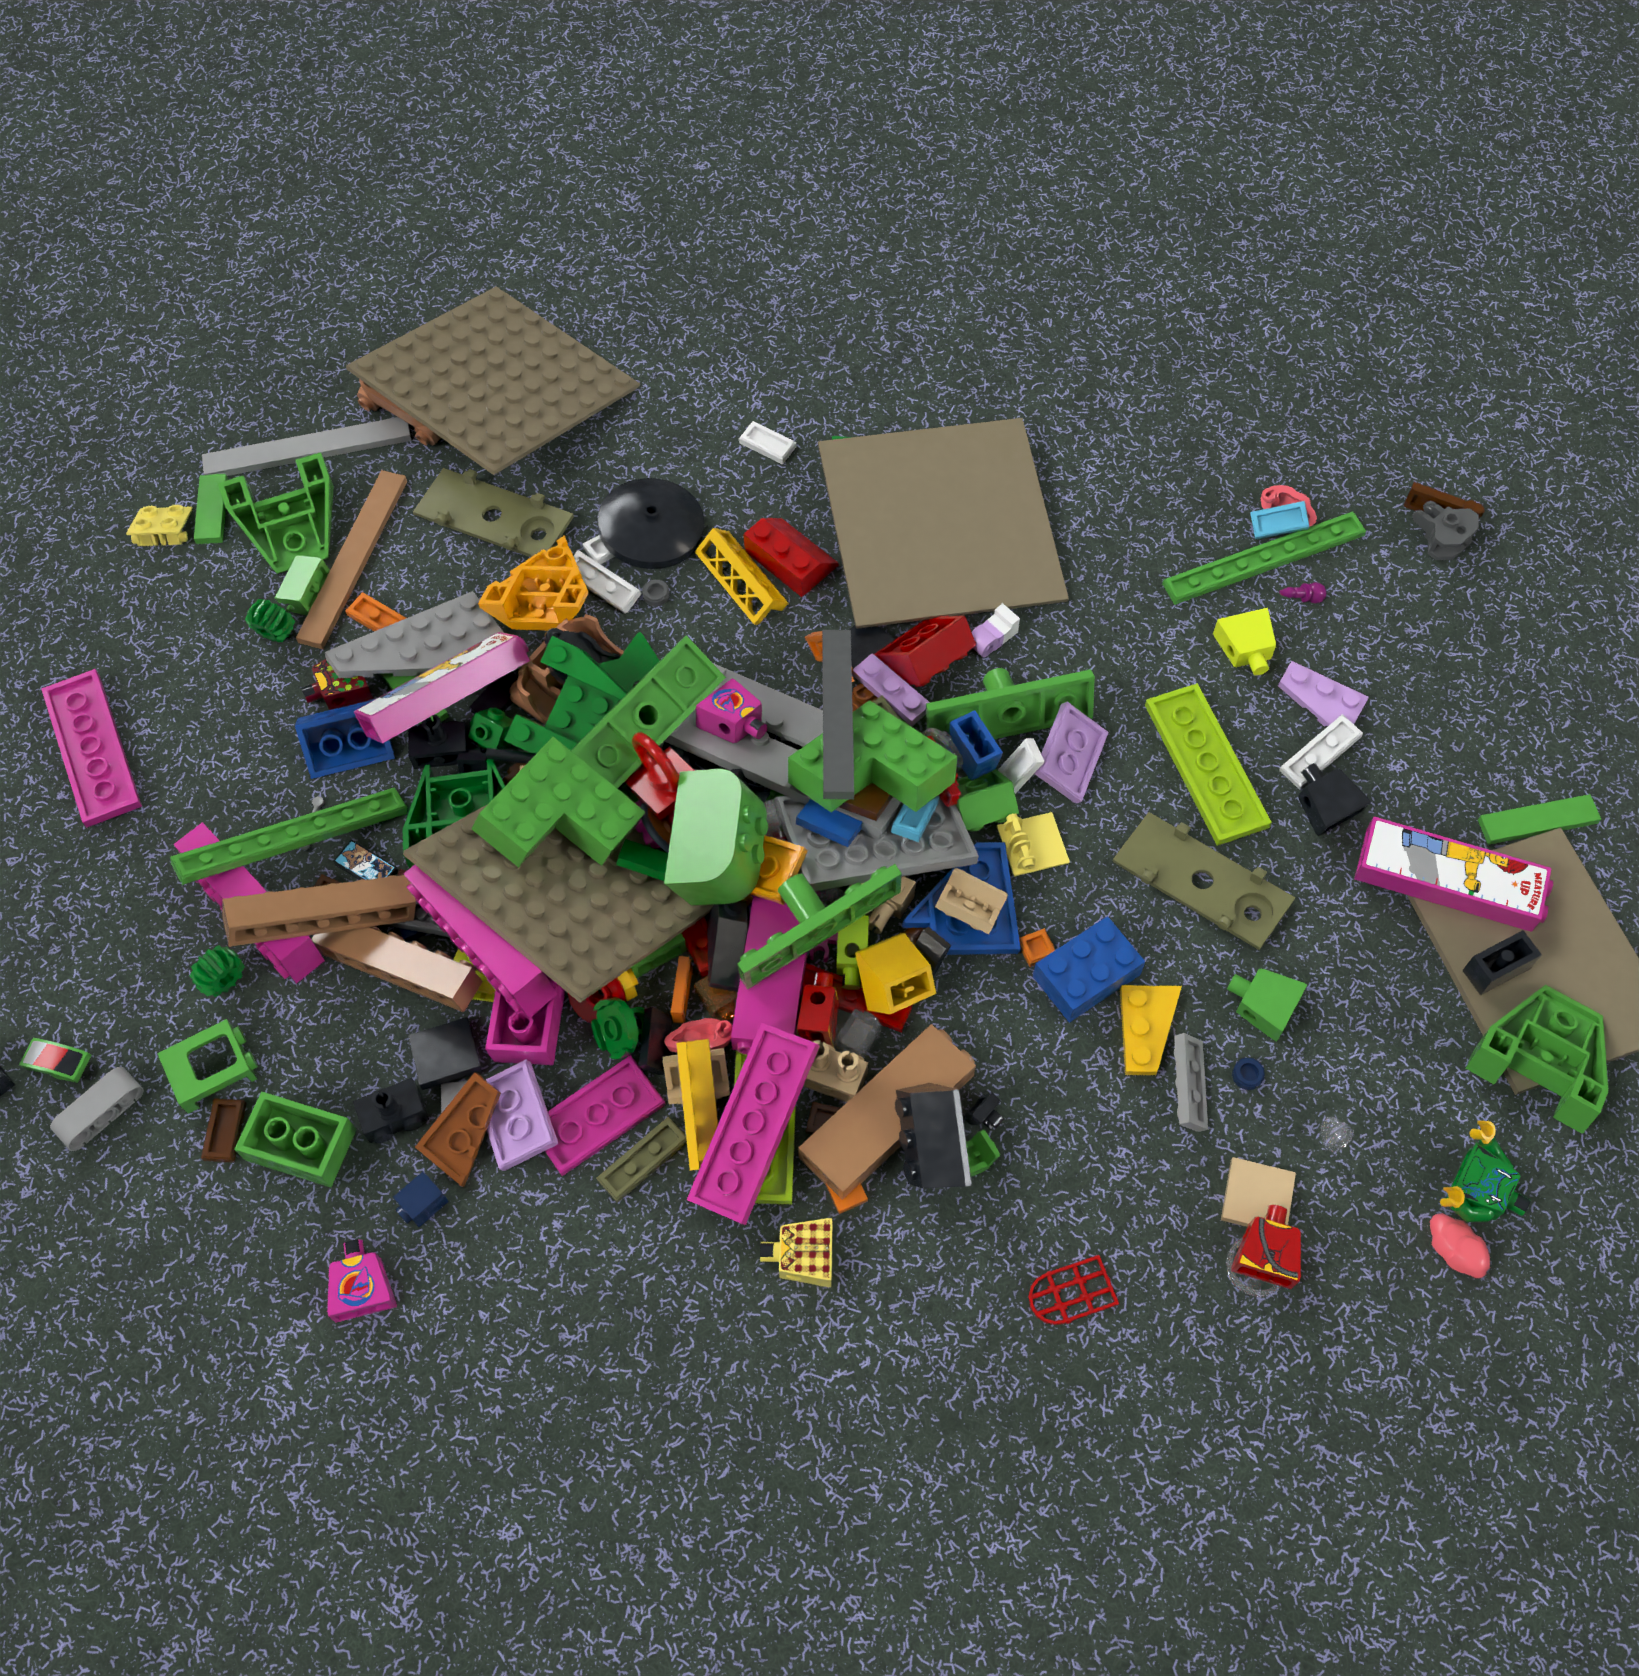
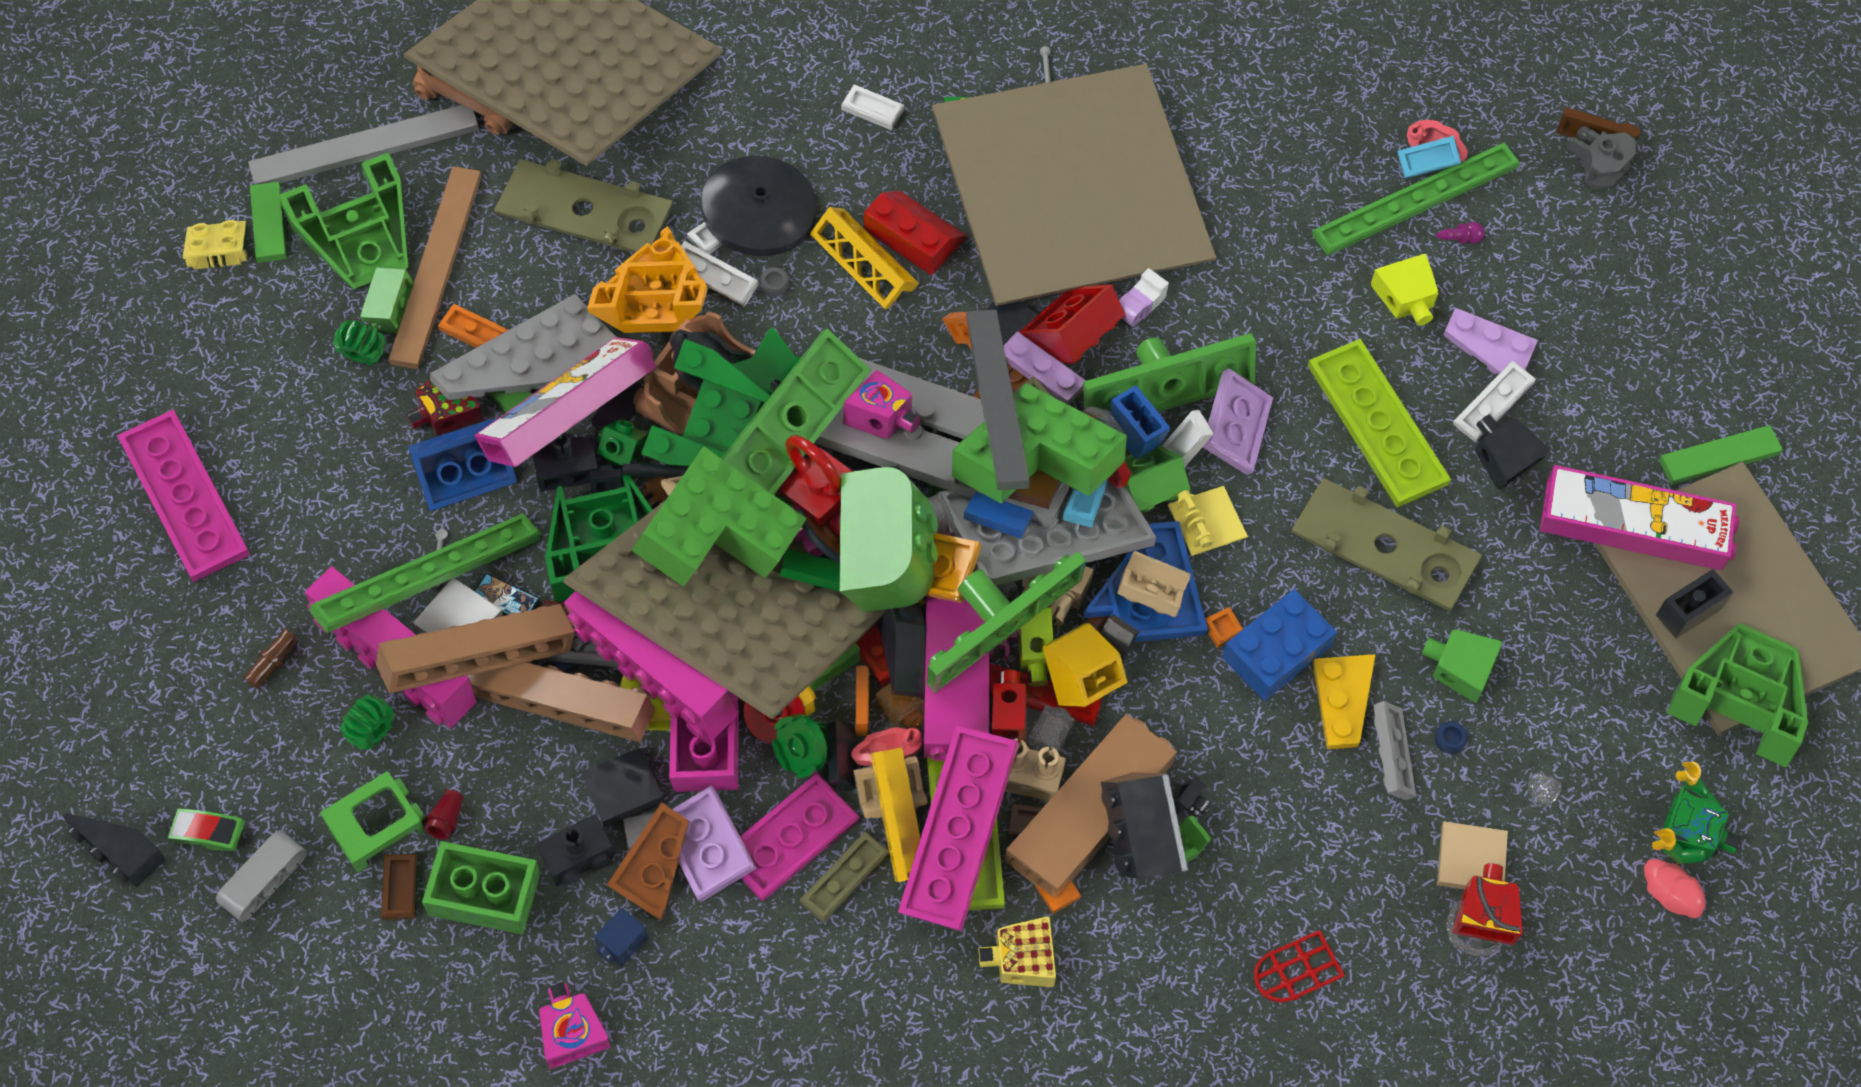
camera: 10 degrees left, 0 degrees up
(142, 904) = (270, 659): none -> reddish brown pin
(275, 1066) = (444, 816): none -> dark red cone
(315, 869) = (455, 607): none -> white tile
(931, 403) = (1045, 52): none -> light grey hinge

